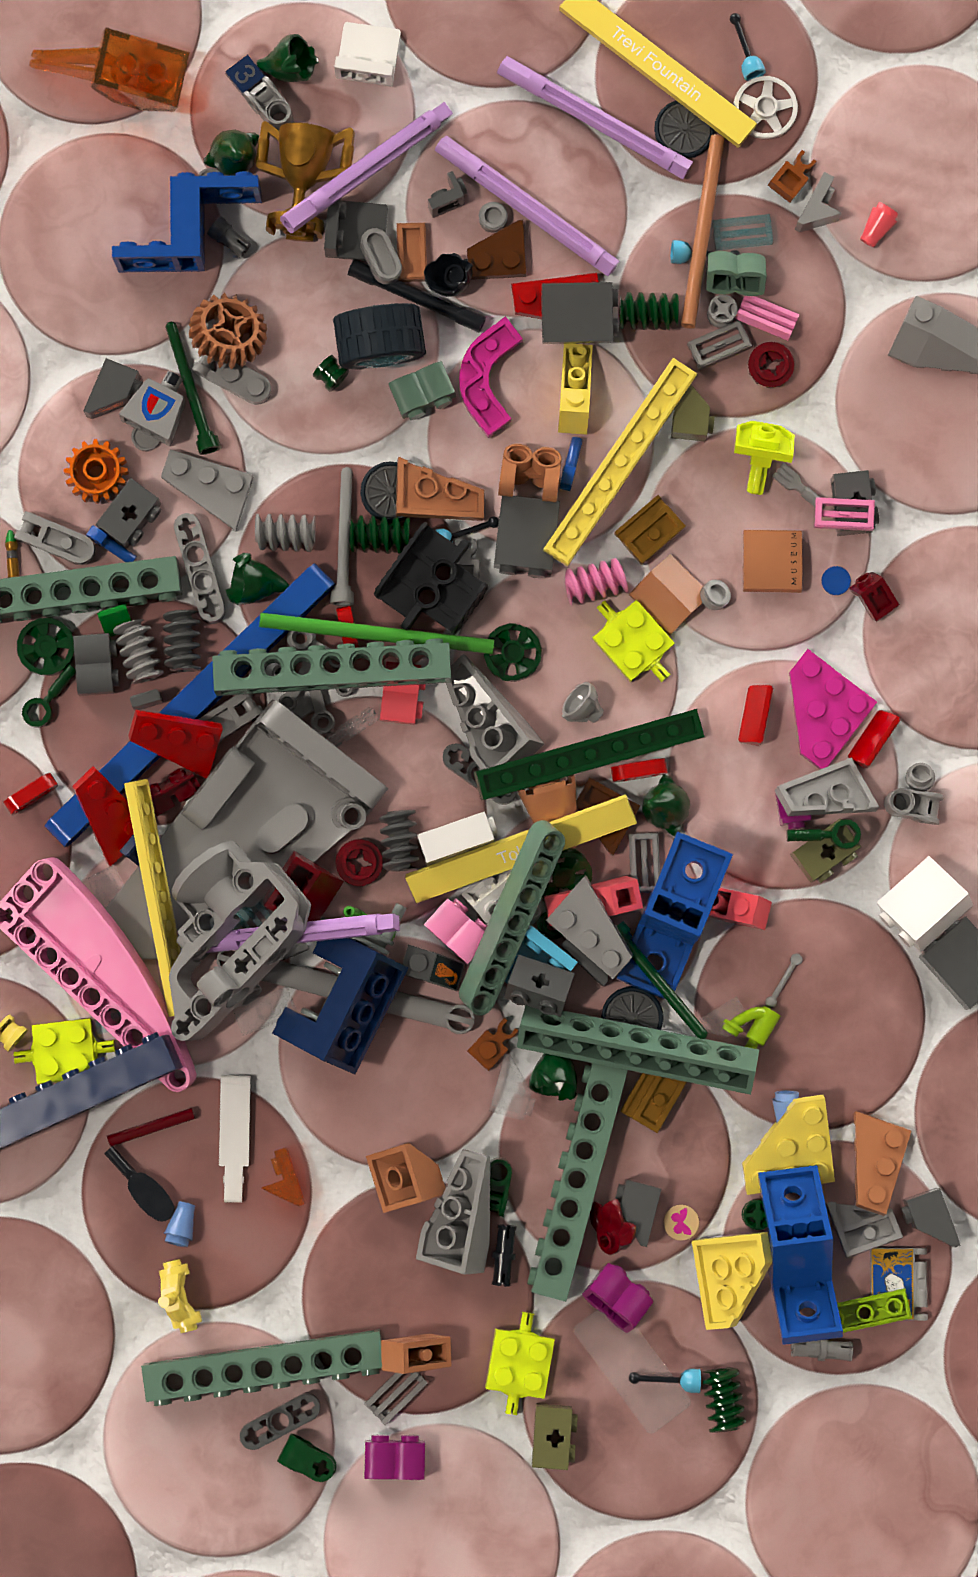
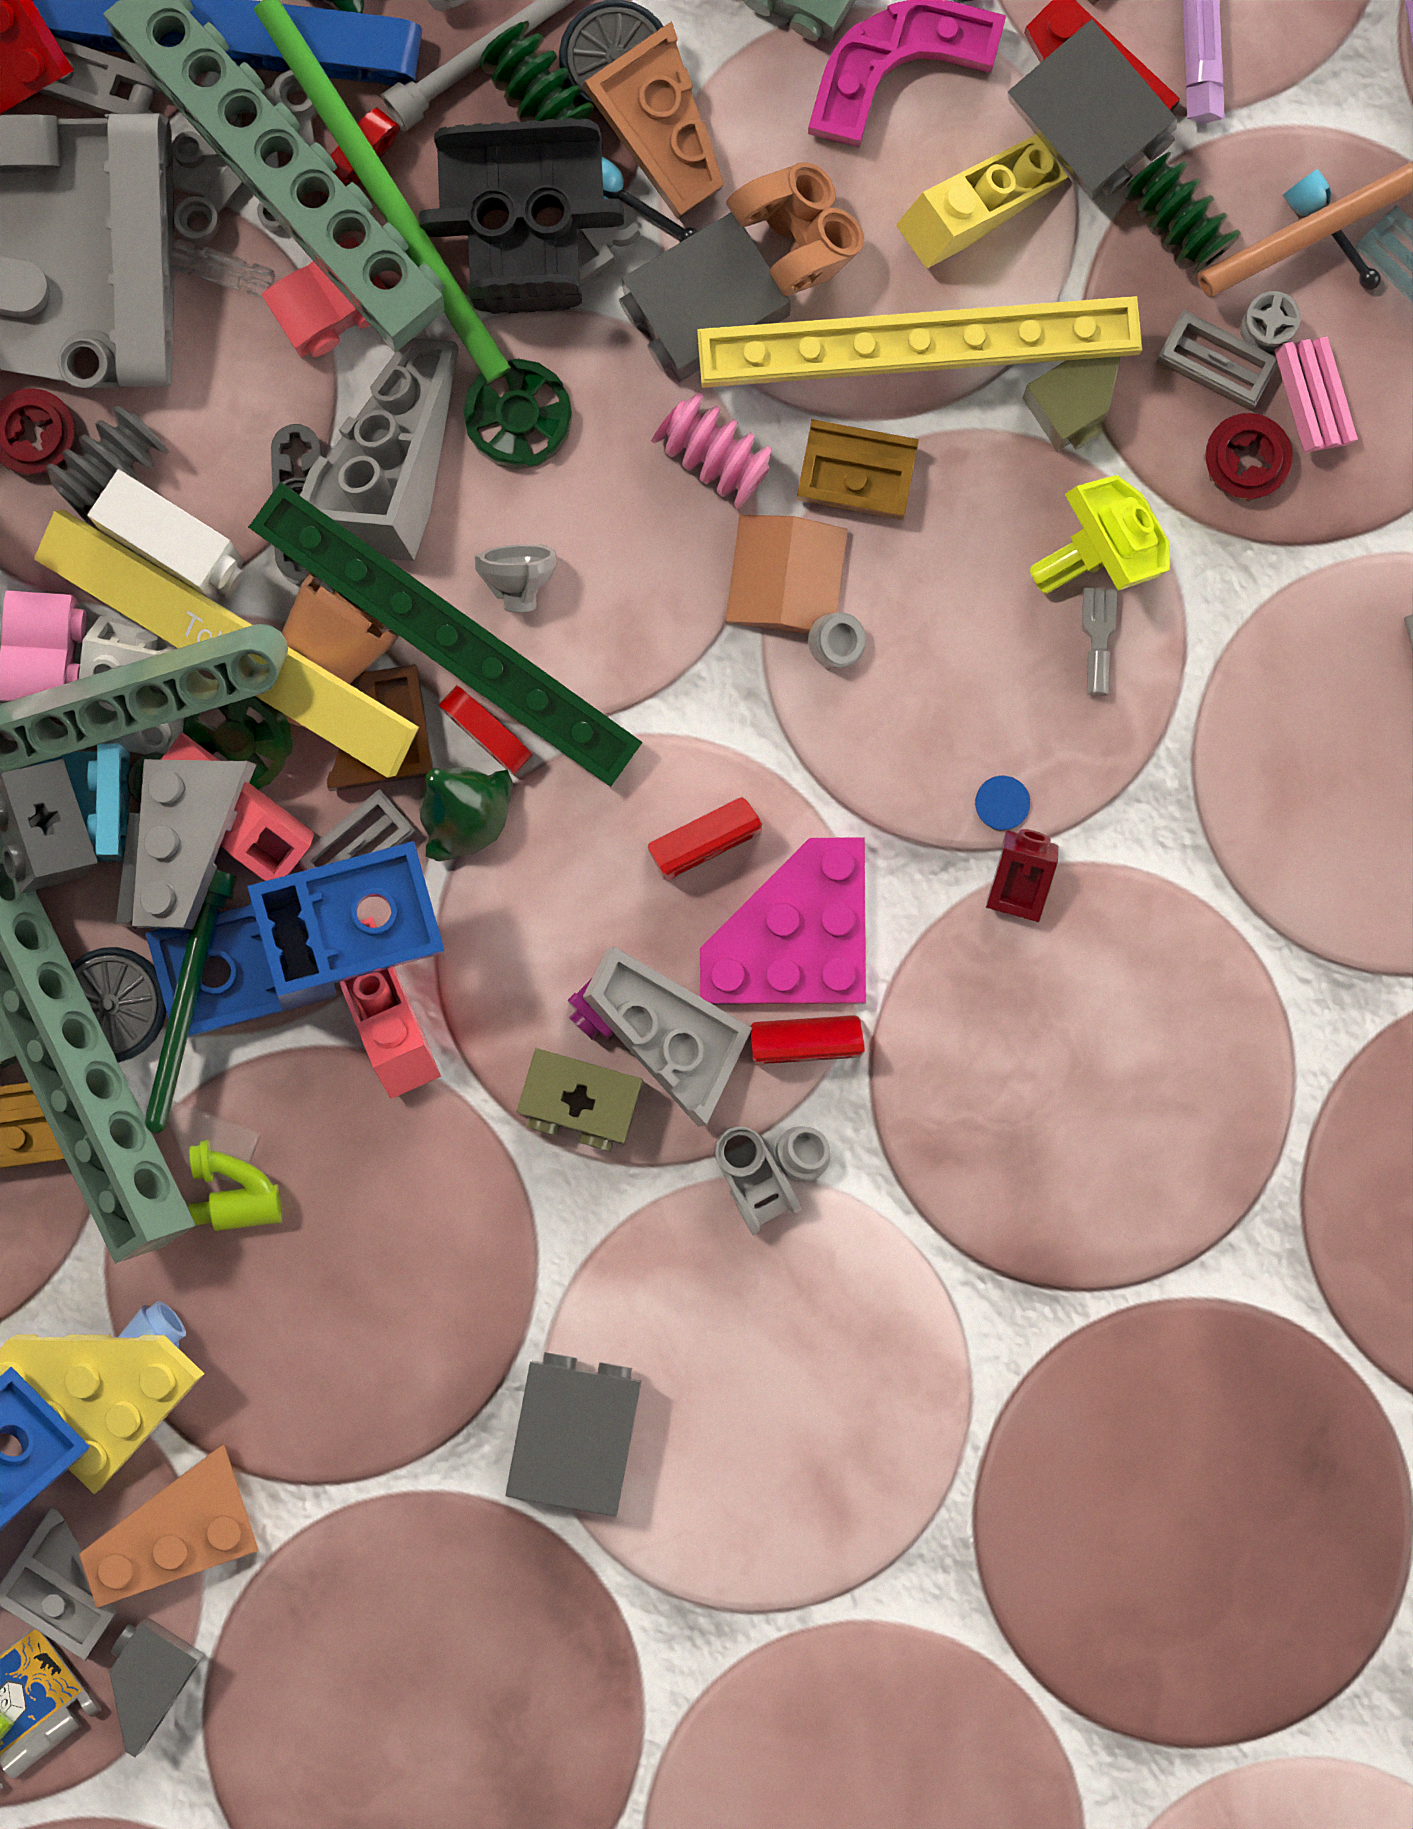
camera: 55 degrees right, 0 degrees up
(571, 464) = (847, 284): blue bar -> none
(633, 641) = (673, 574): neon yellow plate -> none
(736, 273) = (1344, 300): sand green brick -> none
(772, 561) = (954, 684): nougat slope -> none
(795, 959) = (384, 1181): light grey hinge -> none
(818, 834) = (590, 1066): dark green piece -> none
(819, 502) = (1086, 741): bright pink tile -> none
(852, 485) = (1149, 706): dark grey brick -> none
(924, 904) = (609, 1305): white brick -> none

